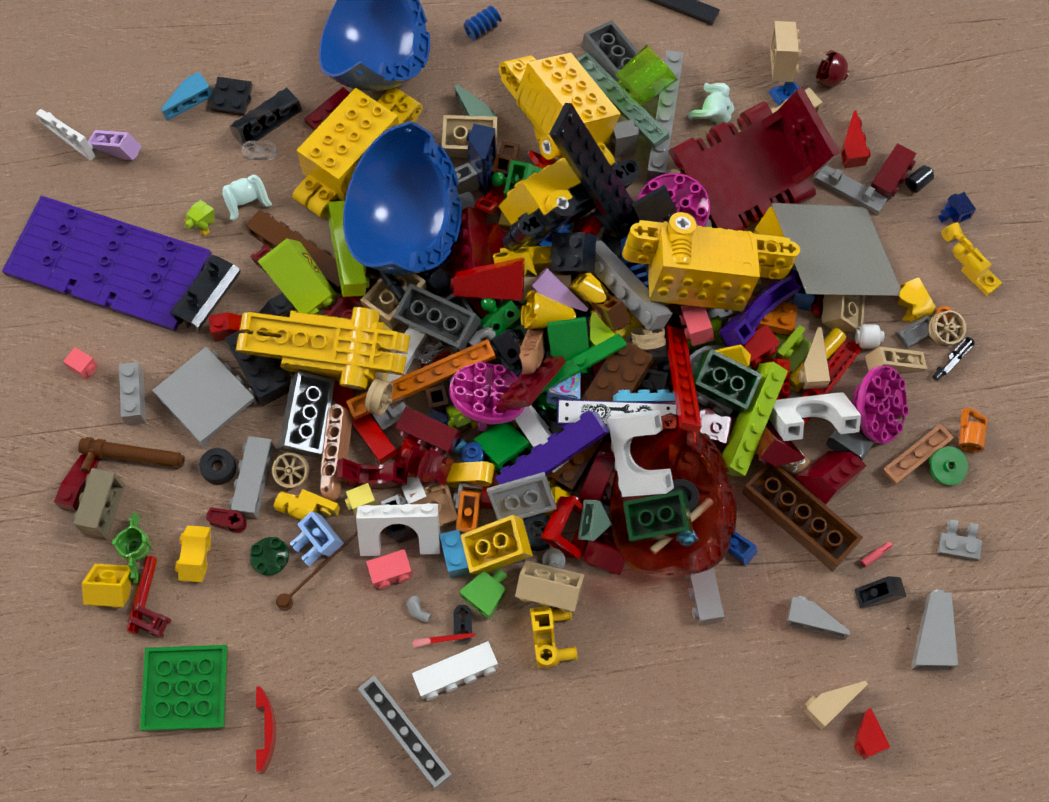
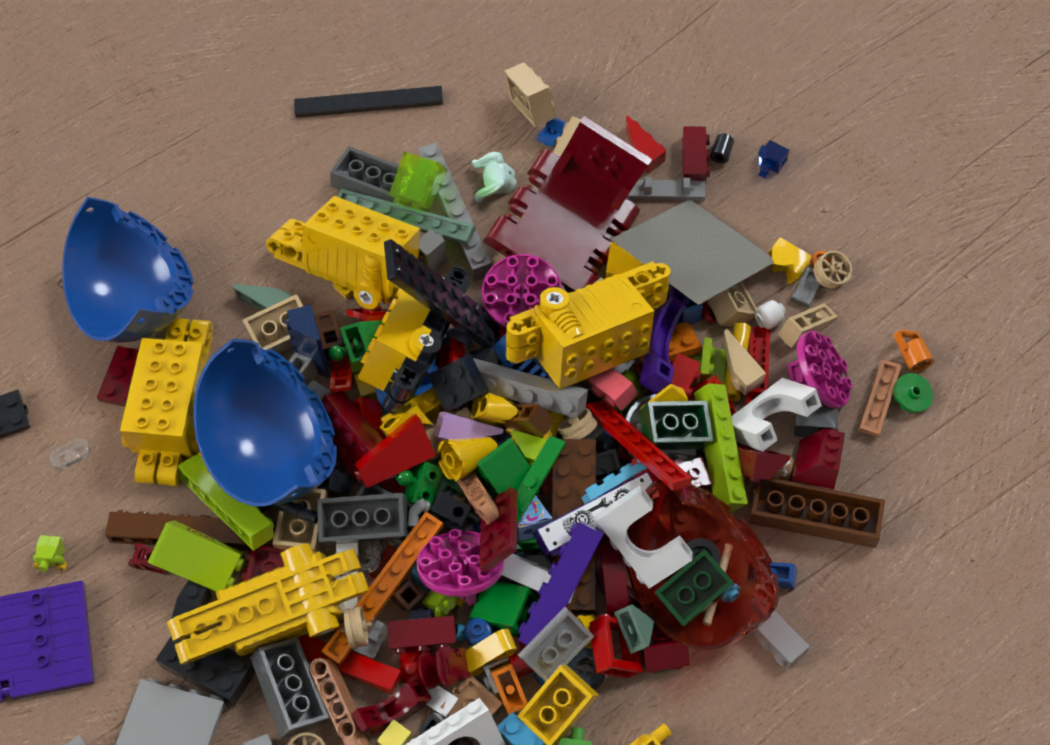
camera: 30 degrees left, 5 degrees down
(205, 292) = (106, 625): black piece -> none
(224, 325) = (148, 645): red slope -> none
(243, 192) = (81, 502): light aqua hair -> none
(266, 117) = (56, 417): black wedge -> none
(482, 21) = (220, 211): blue piece -> none
(549, 586) = (633, 714): tan brick -> none
(554, 558) = (618, 688): light grey hat -> none
(654, 206) = (509, 301): black slope -> none
(811, 617) = (885, 600): light grey slope -> none
(829, 704) = (951, 673): tan slope -> none
(832, 70) = (581, 89): dark red cylinder -> none
(869, 736) = (1004, 678): red slope -> none
(874, 555) = (902, 509): coral pin -> none
(880, 592) = (929, 541): black slope -> none
(936, 636) = (1001, 551): light grey slope -> none
(952, 232) = (781, 181): yellow piece -> none
(953, 358) = (854, 293): black piece -> none
(960, 546) = (968, 460): light grey plate -> none
(976, 267) = (822, 201): yellow plate -> none

